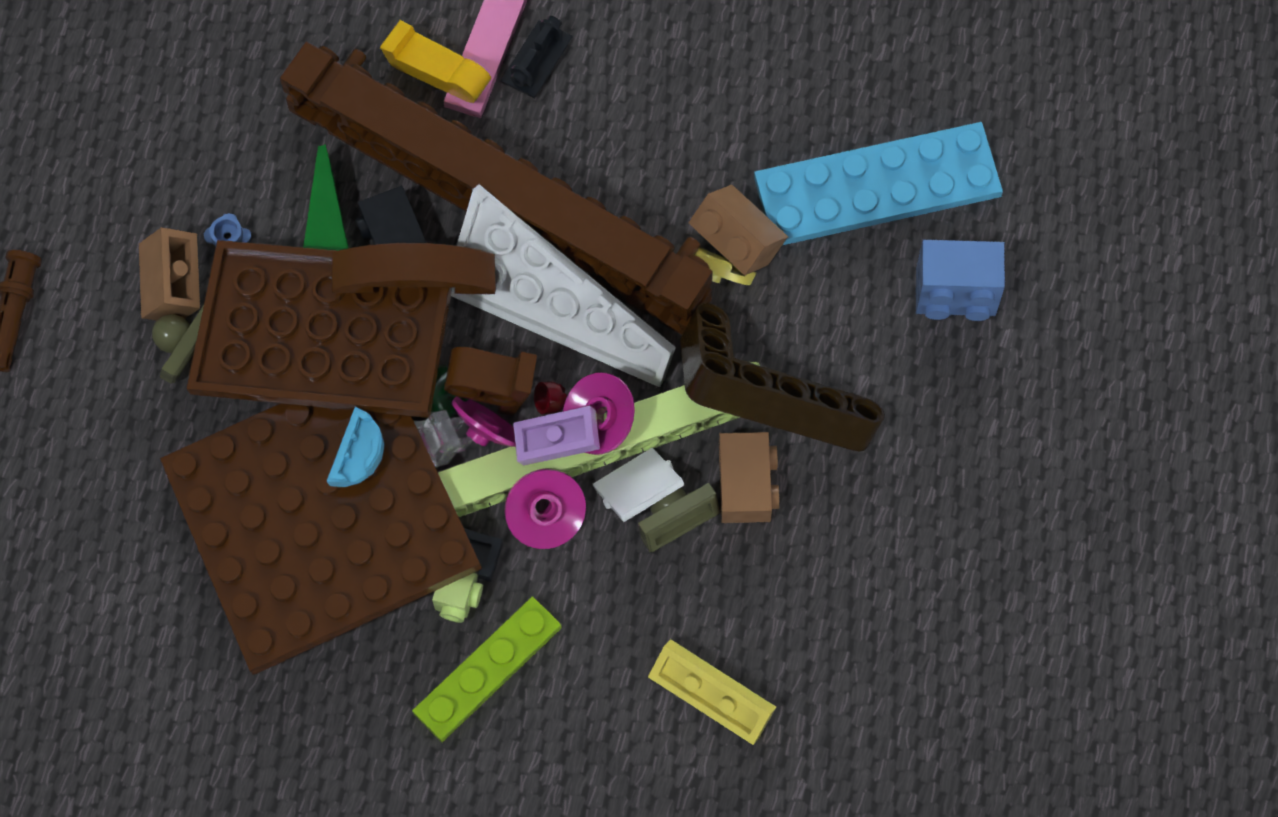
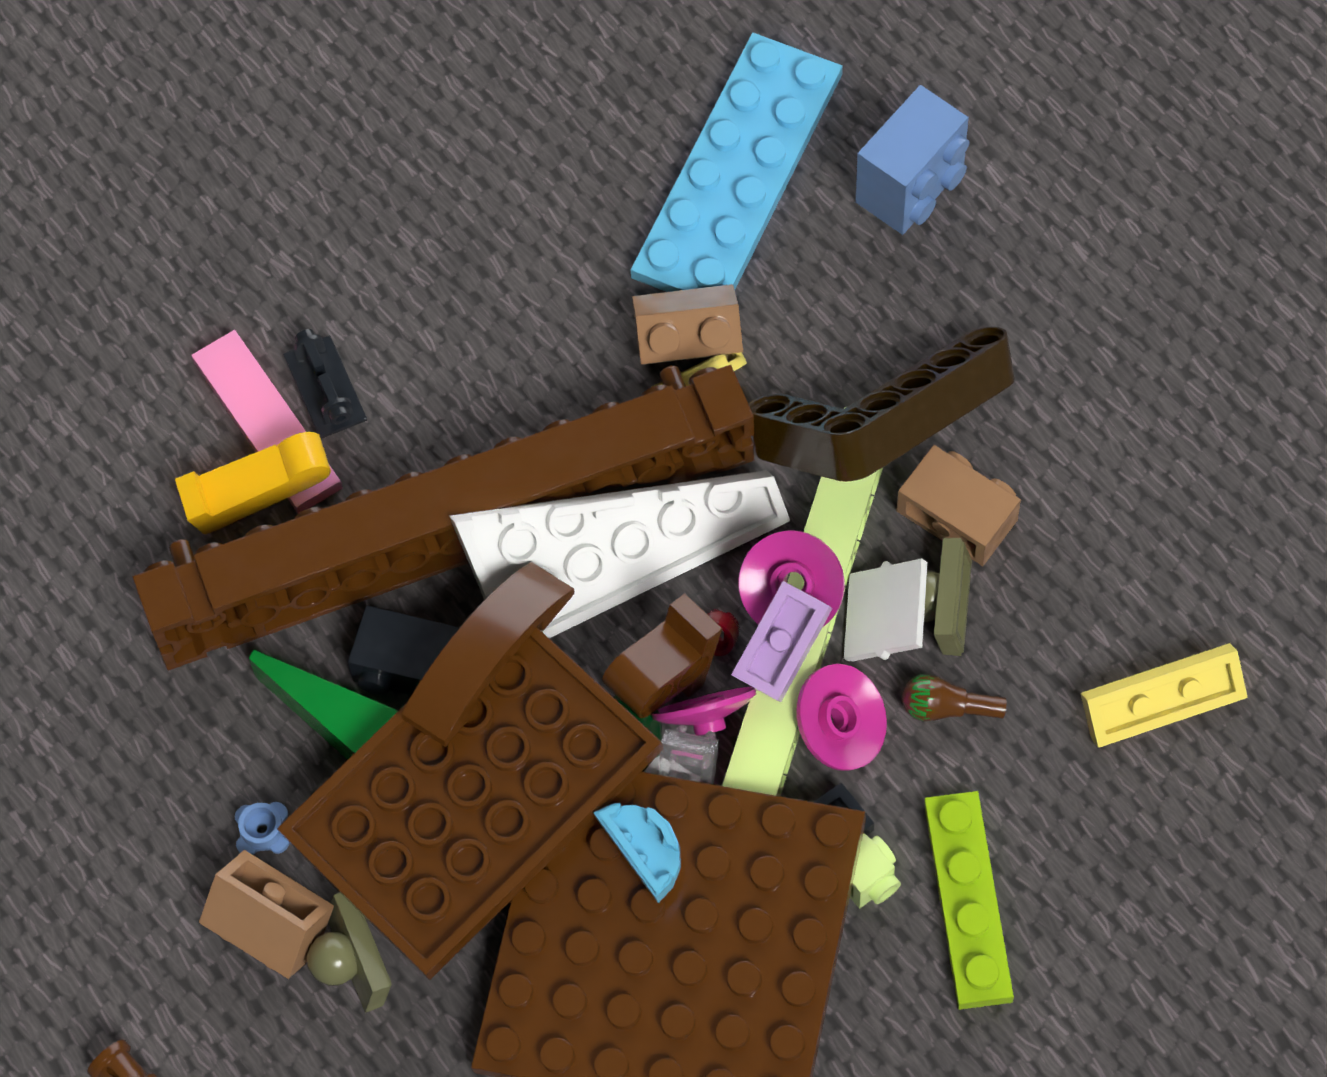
camera: 50 degrees left, 5 degrees down
(604, 556) = (934, 699): none -> reddish brown piece

